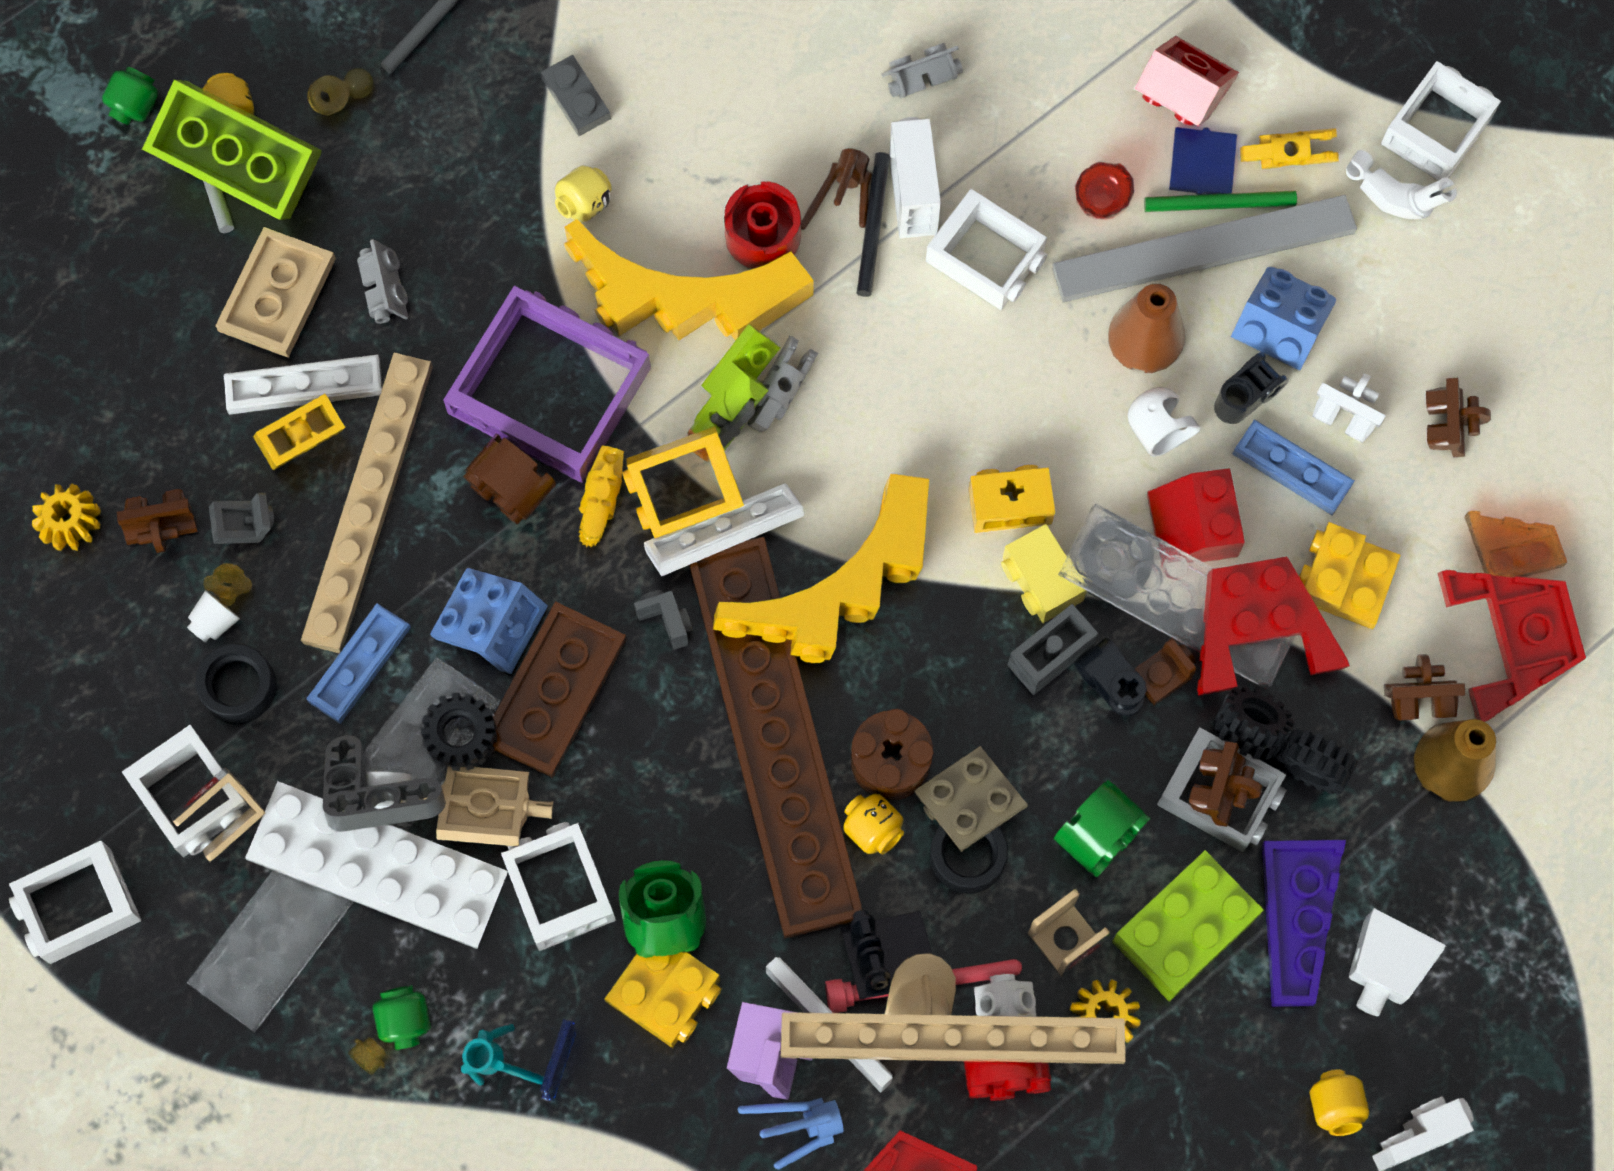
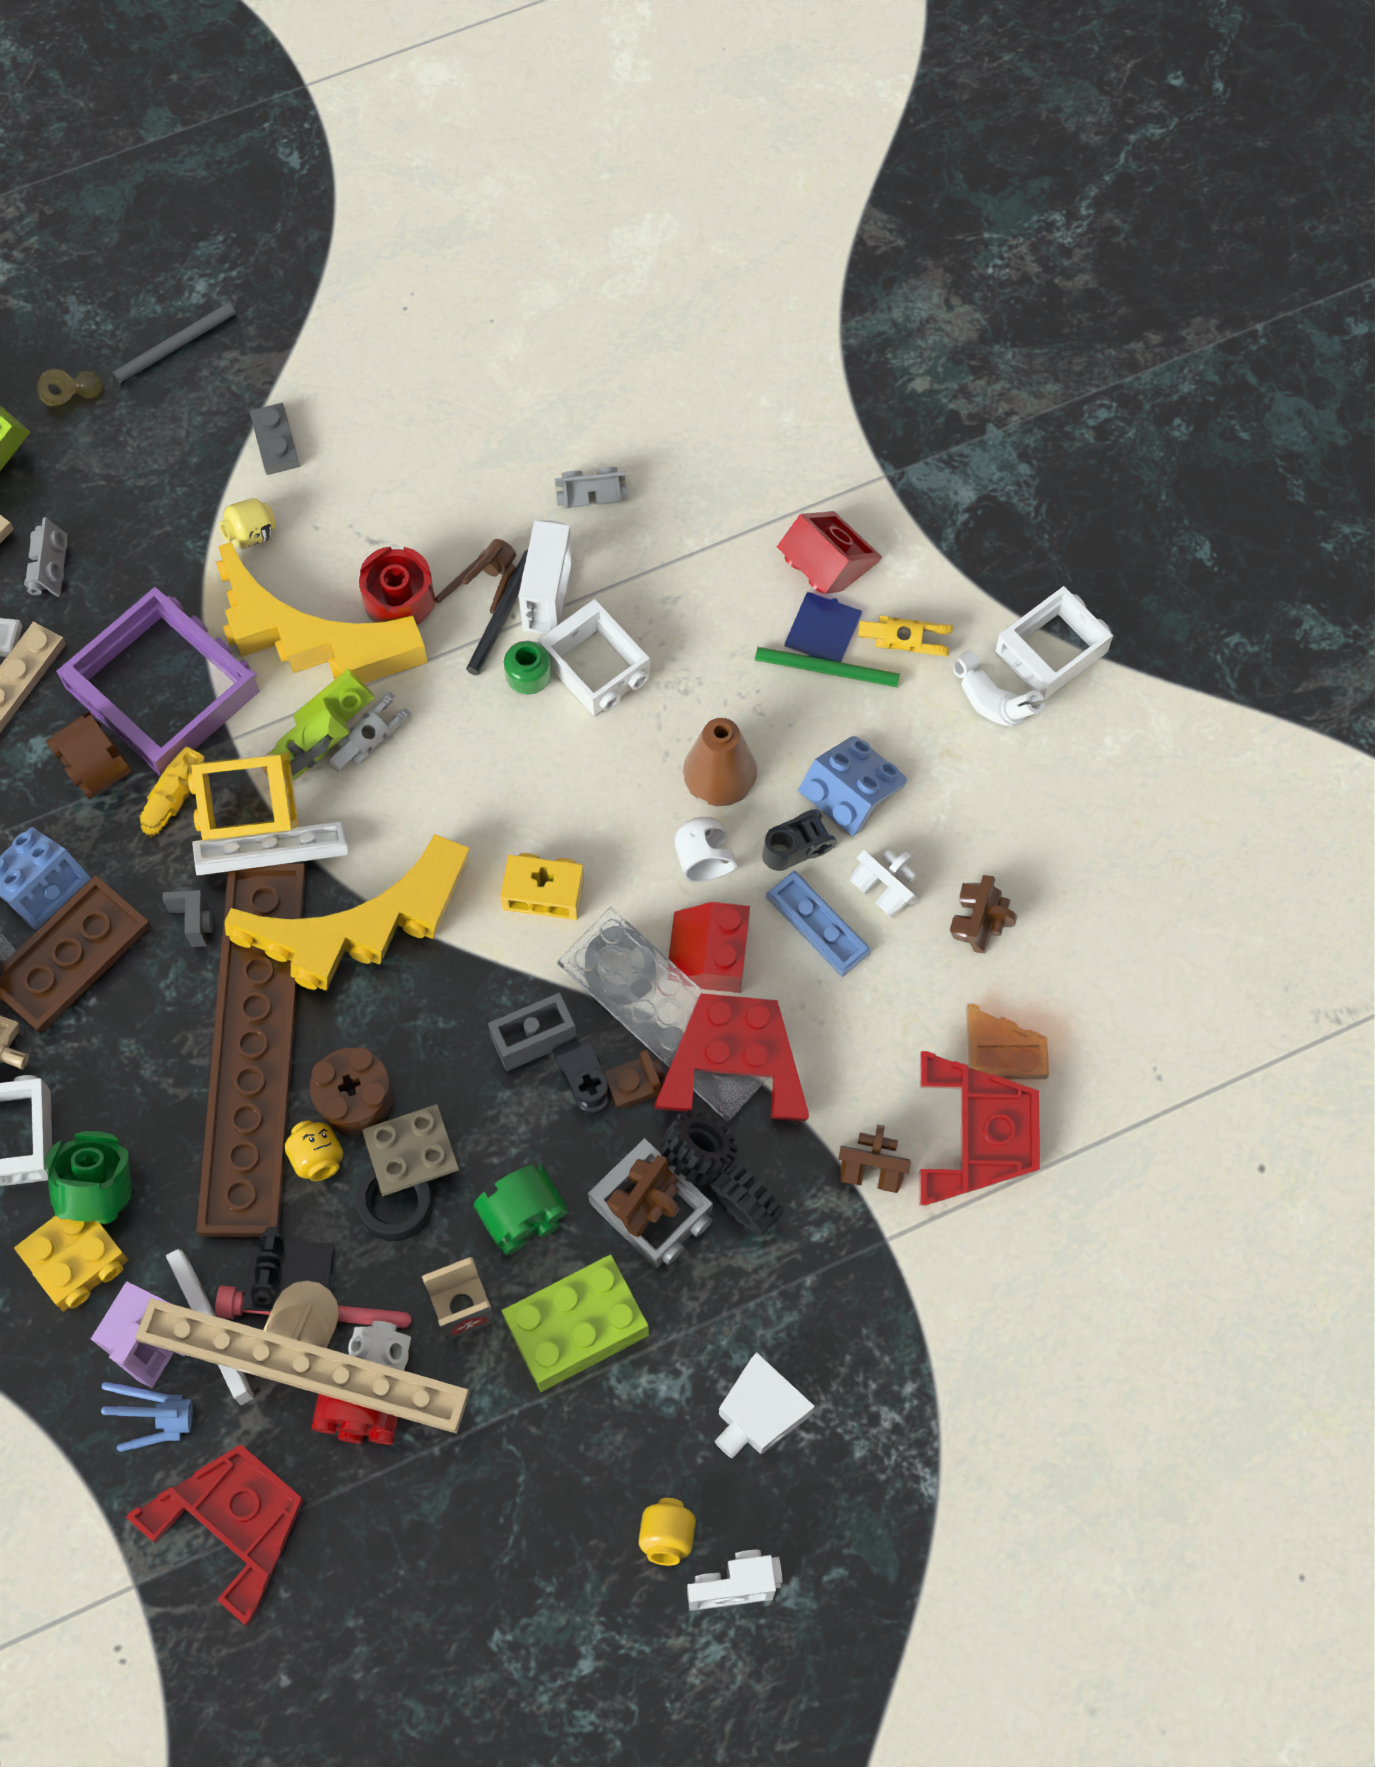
camera: 15 degrees right, 5 degrees down
(923, 276) = (527, 667): none -> green head
(1035, 565) = (542, 946): light yellow brick -> none
(1104, 190) = (719, 631): clear red hair -> none
(1110, 1001) = (485, 1379): yellow gear -> none
(1204, 248) = (800, 705): light grey tile -> none
(1299, 905) = (690, 1332): dark purple wing -> none
(1348, 575) = (836, 1035): yellow plate -> none
(1456, 759) = (885, 1234): pearl gold cone -> none

